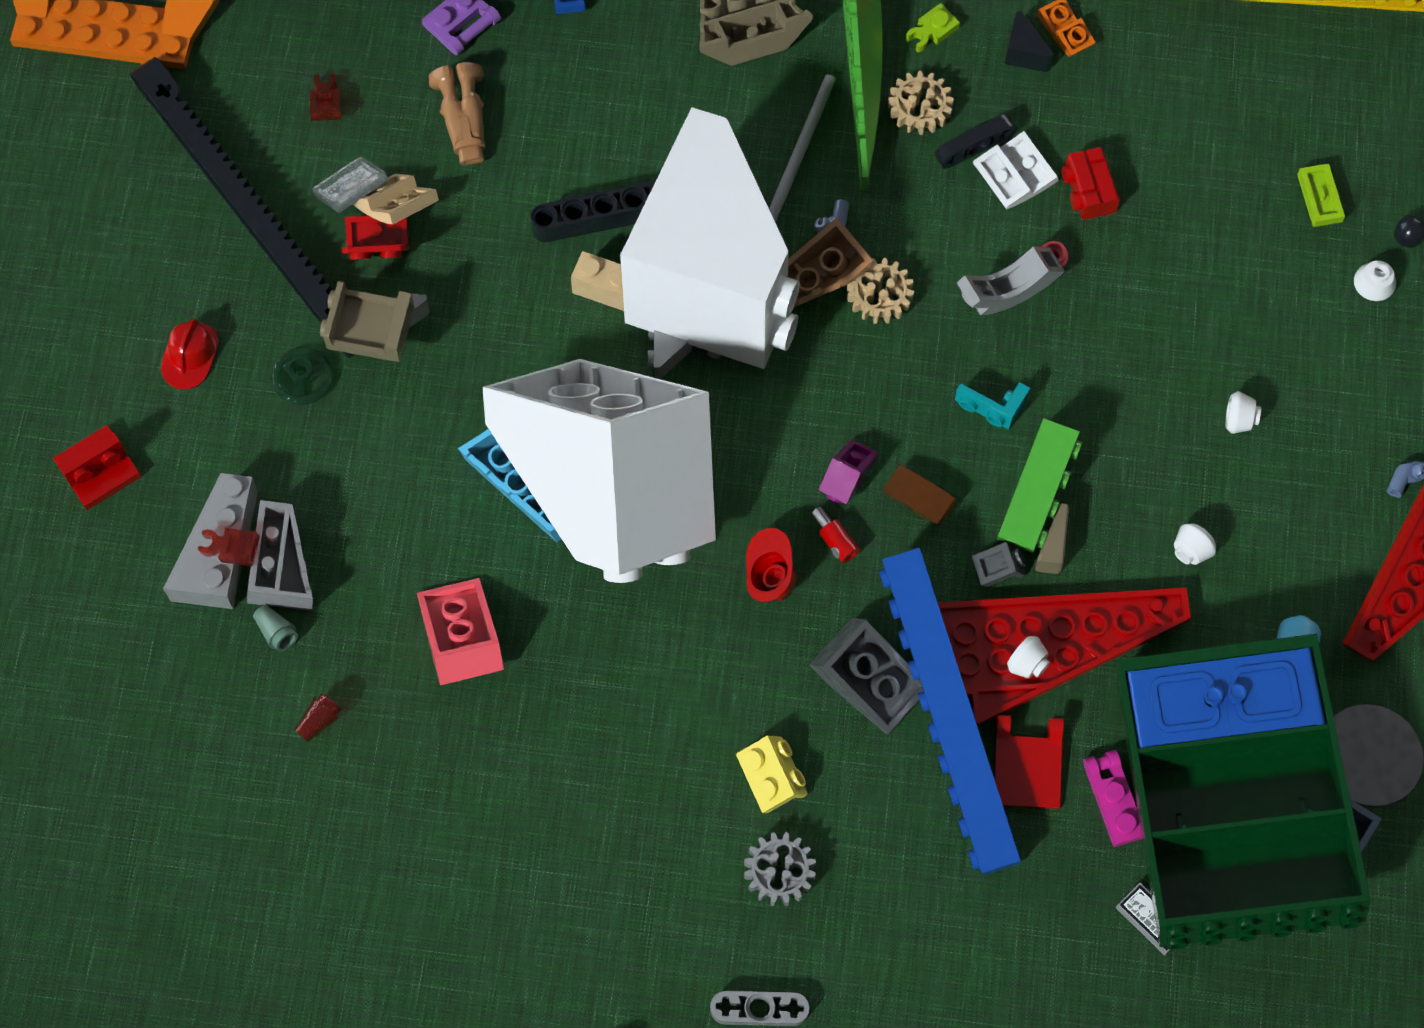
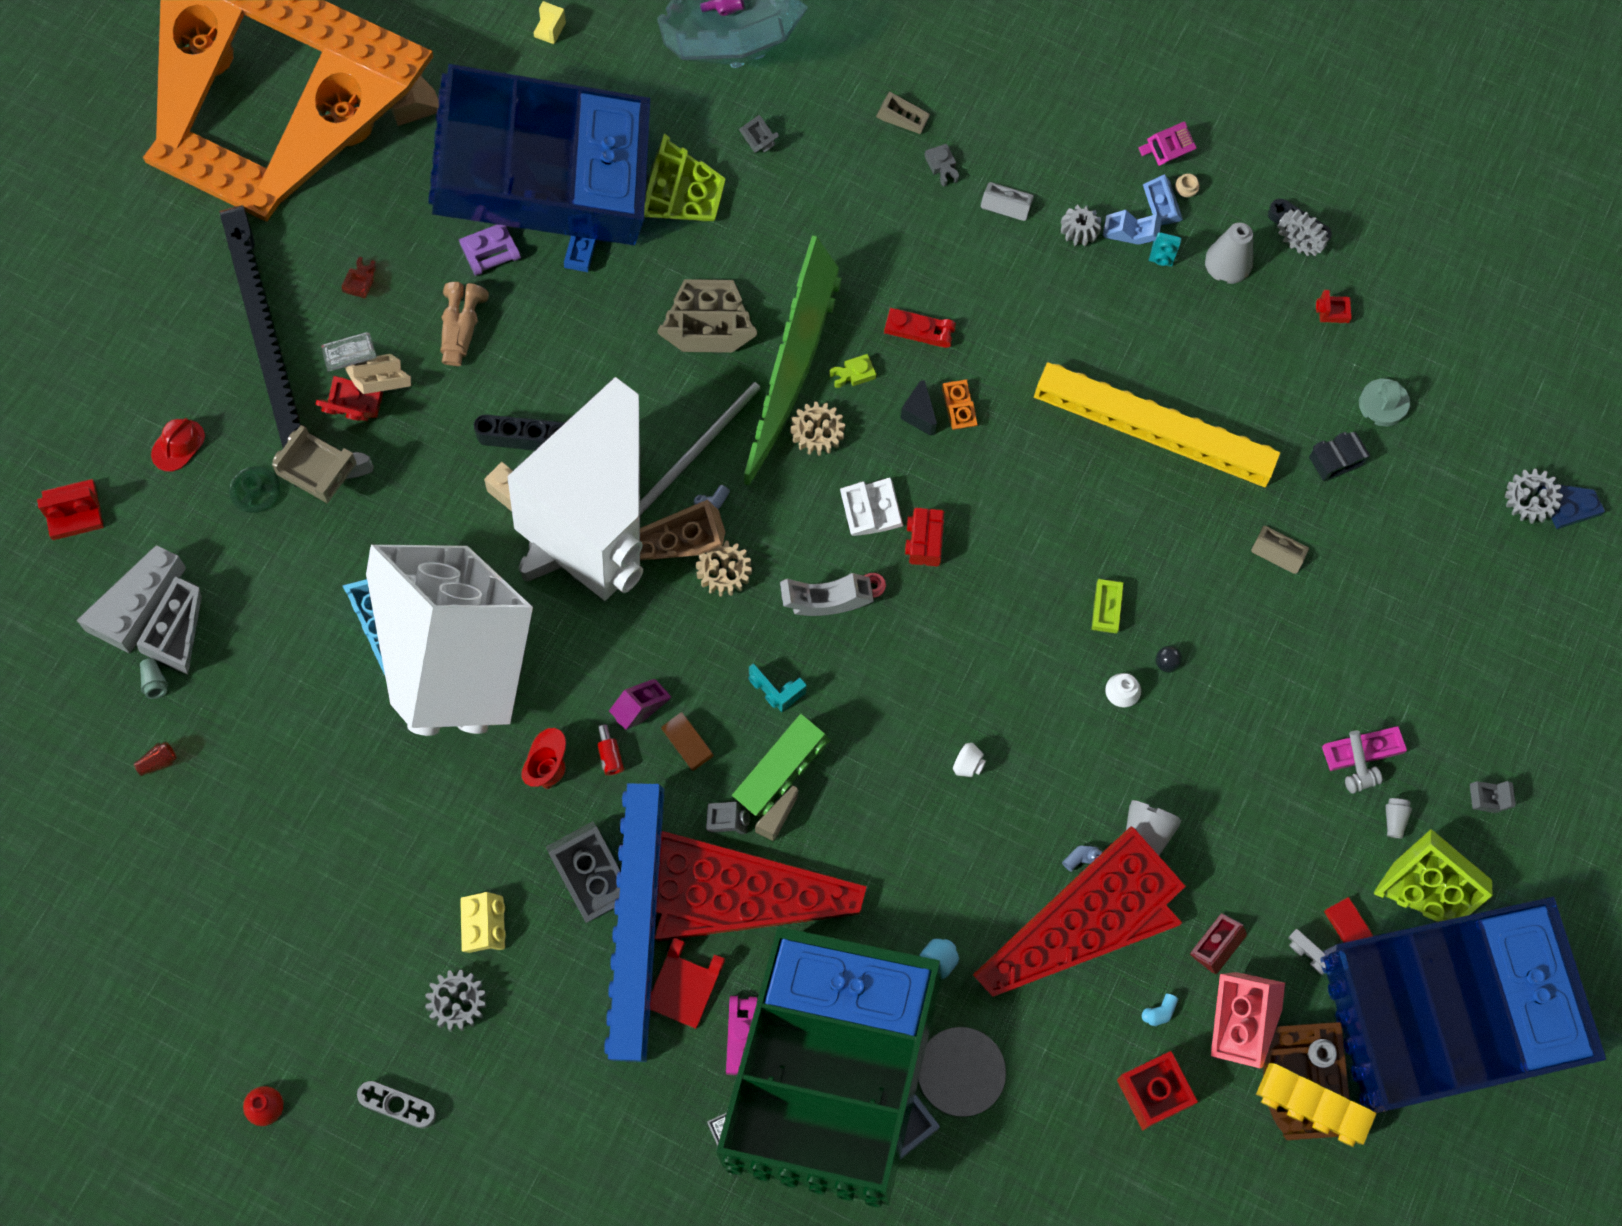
camera: 15 degrees right, 0 degrees up
(233, 548) = (139, 607): clear red plate -> none
(460, 631) = (289, 729): coral slope -> none
(975, 141) = (848, 473): black beam -> none
(1029, 658) = (714, 901): white cone -> none
(1194, 544) = (886, 854): white cone -> none

